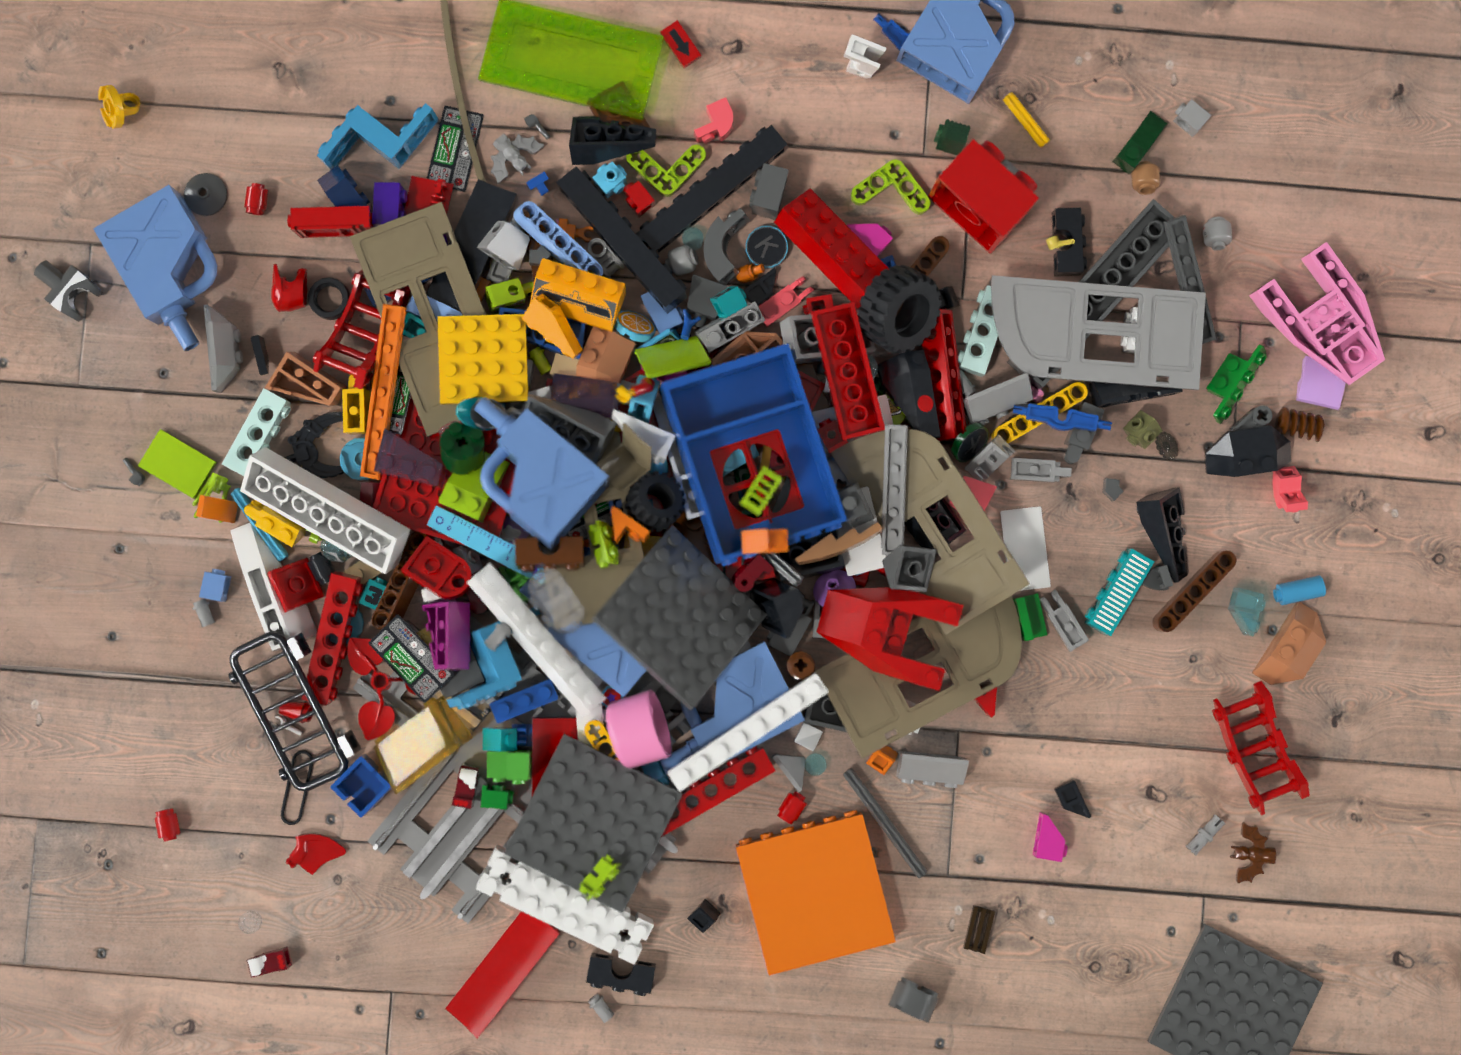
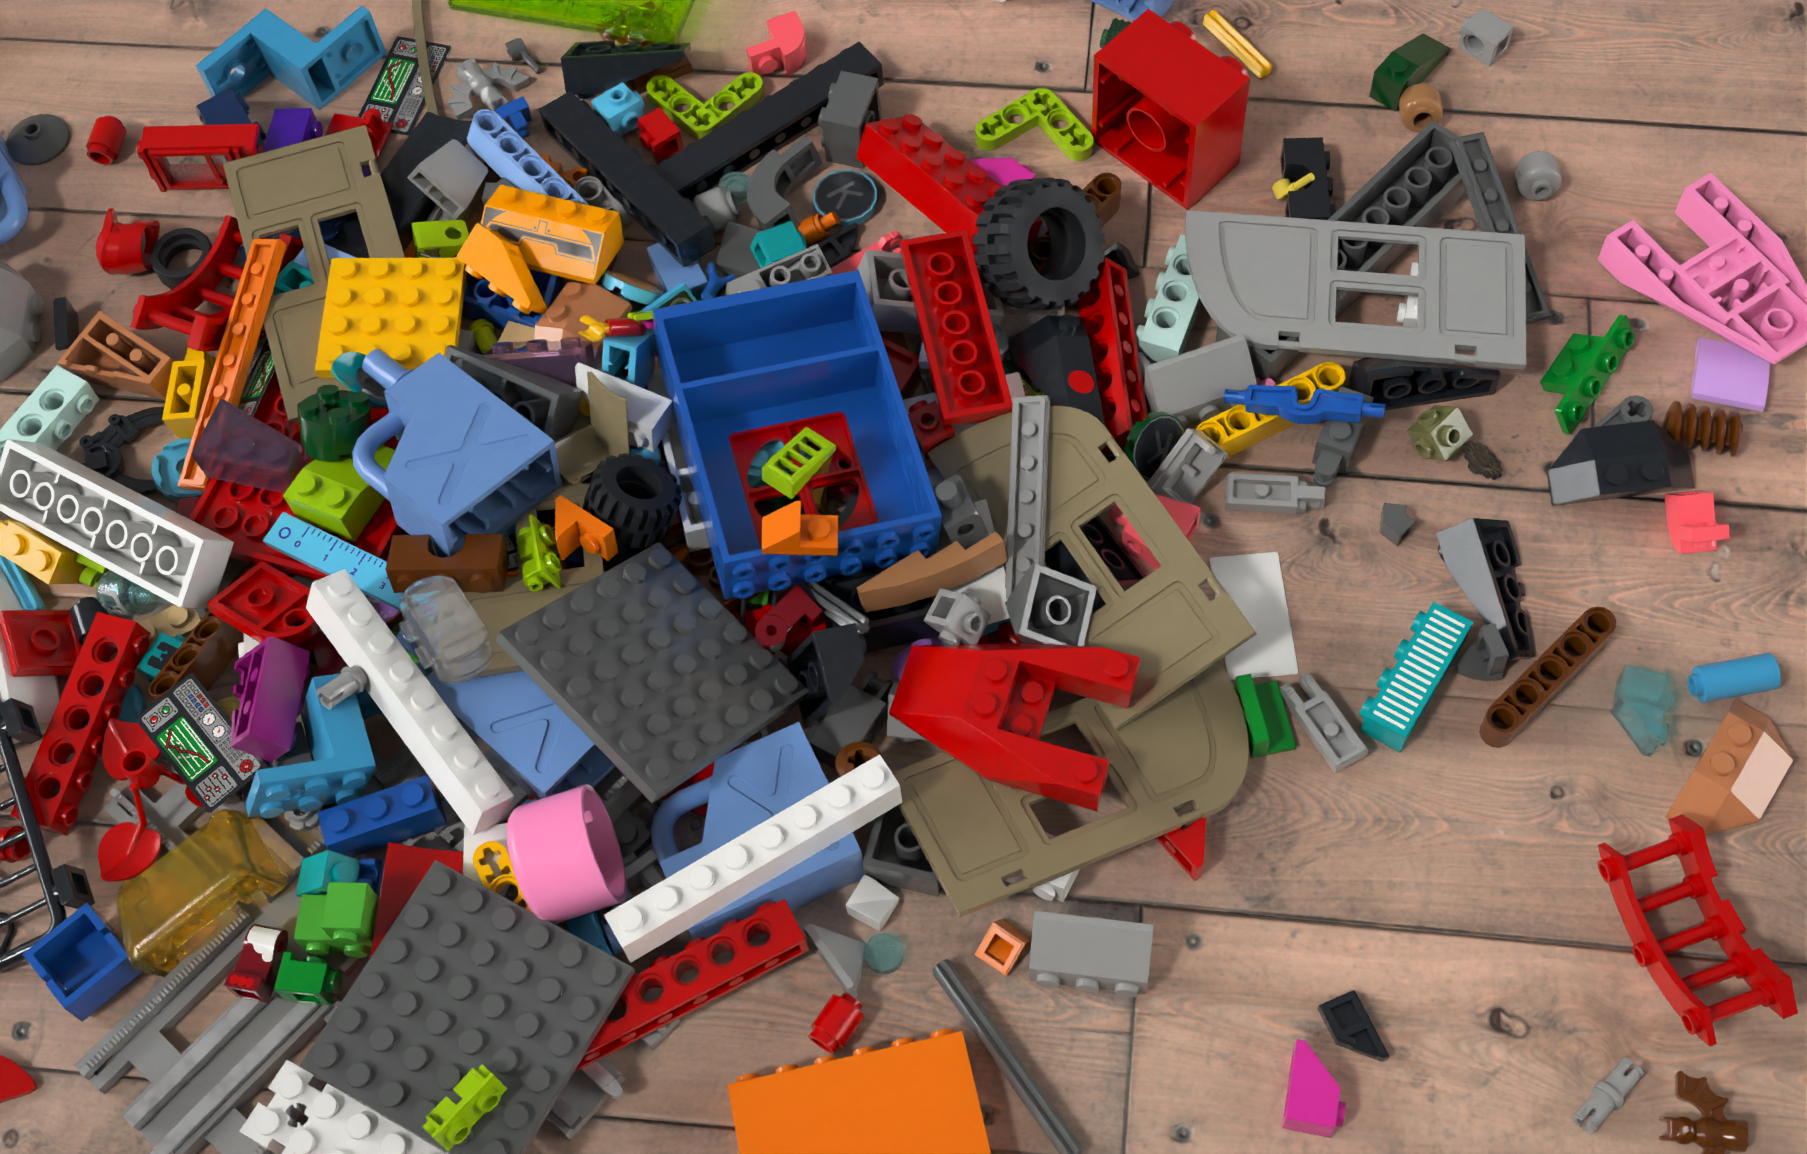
camera: 15 degrees right, 25 degrees down
(855, 574) = (957, 617): none -> light grey brick

